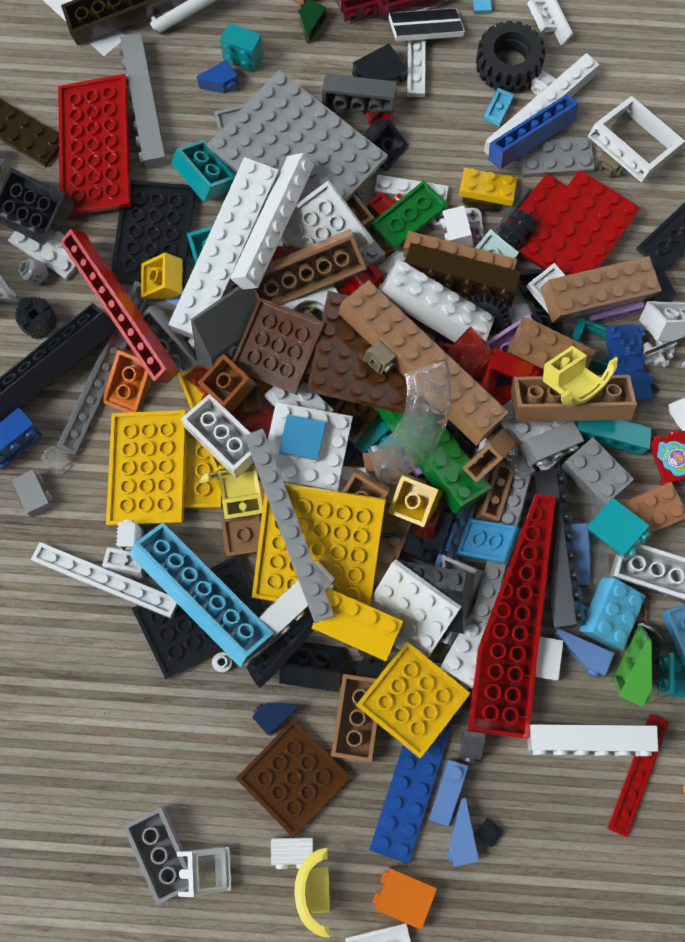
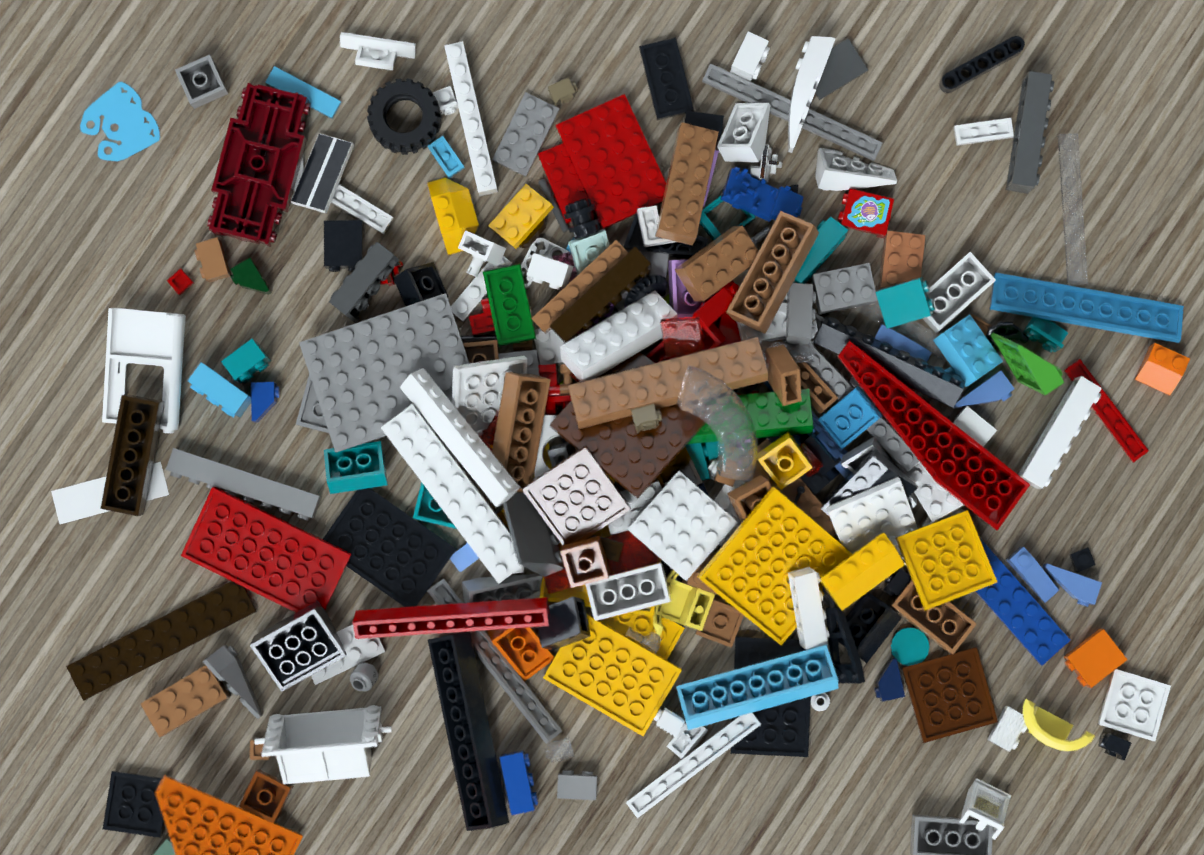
camera: 60 degrees left, 10 degrees up
(35, 317) = (399, 698): black brick -> none
(161, 277) = (441, 564): yellow slope -> none
(165, 401) = (566, 624): none -> black brick
(191, 482) = (651, 641): none -> clear bar
(206, 39) = (219, 391): none -> medium azure brick
(289, 526) = (749, 581): light grey plate -> none
(302, 437) = (675, 525): dark azure tile -> none
(317, 715) = (909, 646): none -> teal tile
(440, 169) = (481, 250): none -> white brick
(455, 137) = (453, 212): none -> yellow wedge
(471, 746) = (1008, 534): flat silver slope -> none
(533, 131) = (496, 144): blue brick -> none
(572, 380) = (762, 264): light yellow piece -> none
(622, 152) = (562, 79): white window -> none

